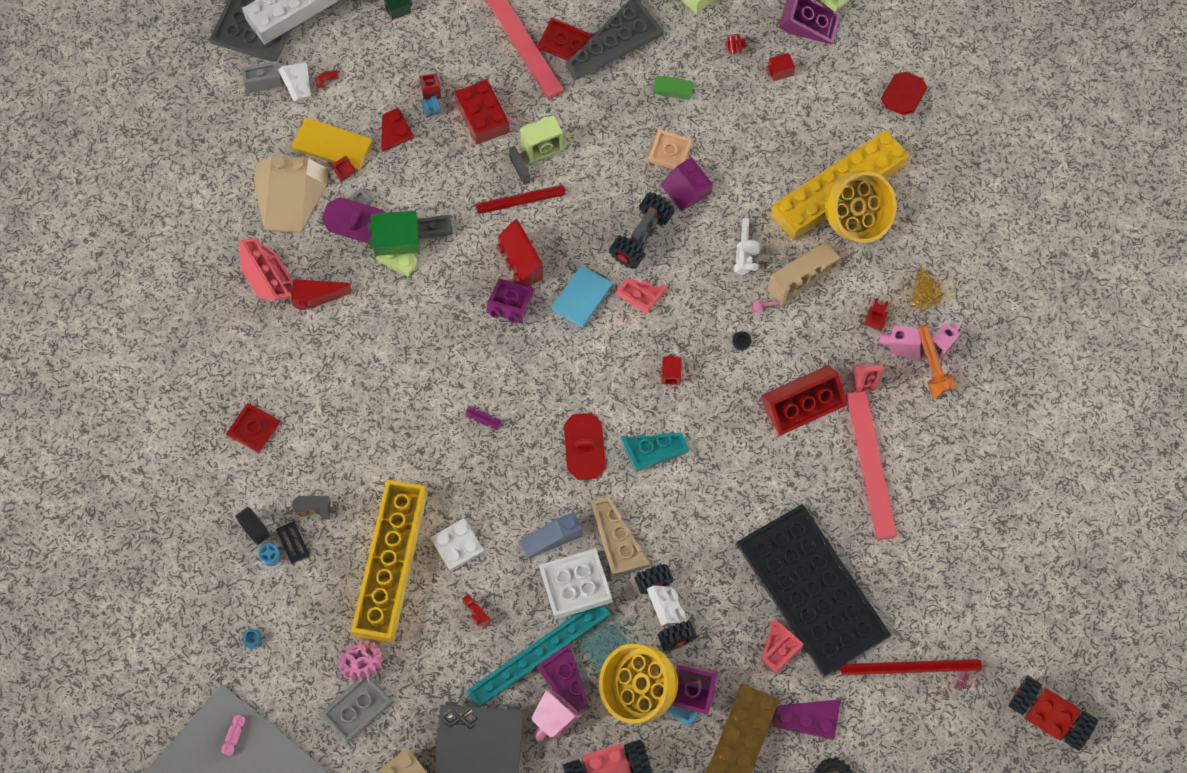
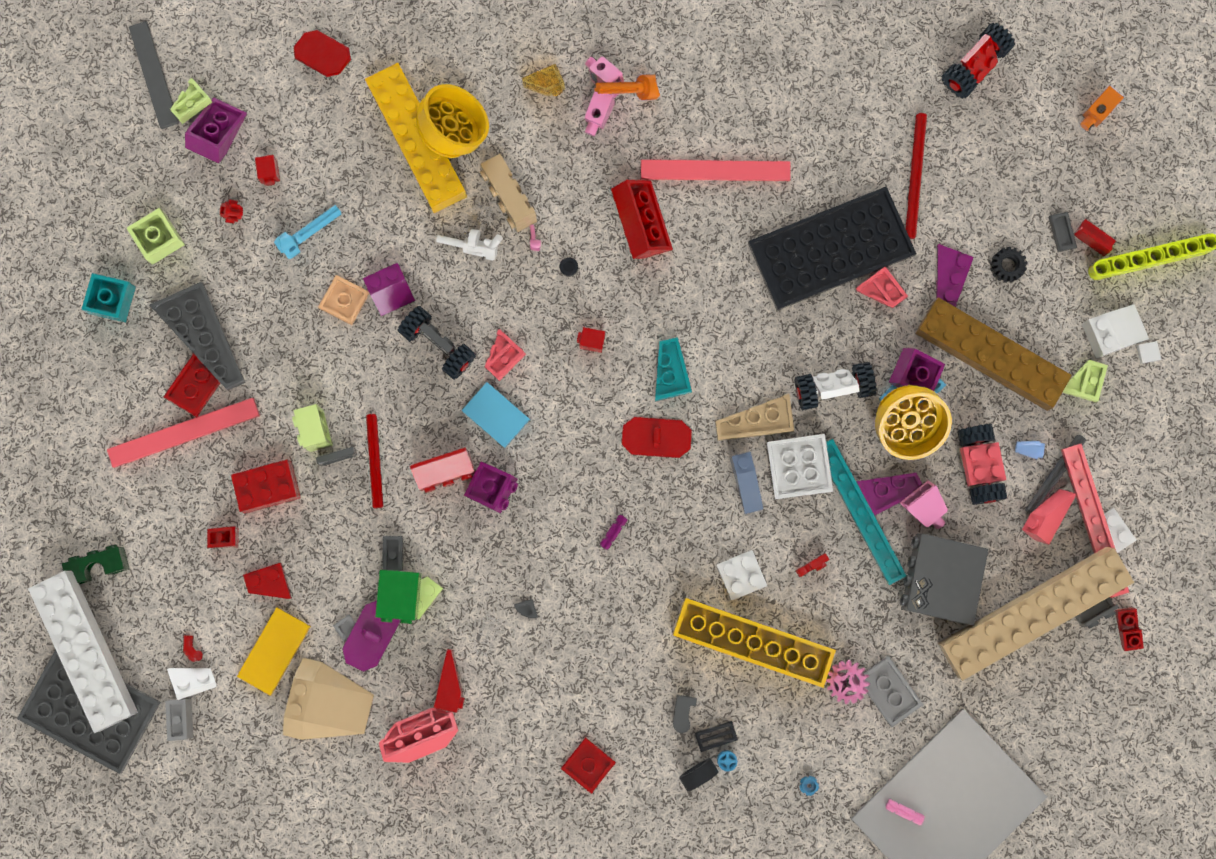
camera: 80 degrees left, 15 degrees up
(343, 168) = (307, 641): red tile -> none
(397, 351) = (526, 608): none -> dark grey tile
(430, 106) = (248, 540): dark azure wheel -> none
(601, 644) = (861, 449): clear light blue plate -> none
(670, 86) = (270, 284): bright green slope -> none
(712, 94) = (289, 244): none -> medium azure piece
(866, 376) = (629, 153): coral slope -> none
(876, 315) = (563, 133): red plate -> none
(961, 680) = (935, 134): clear pink tile -> none

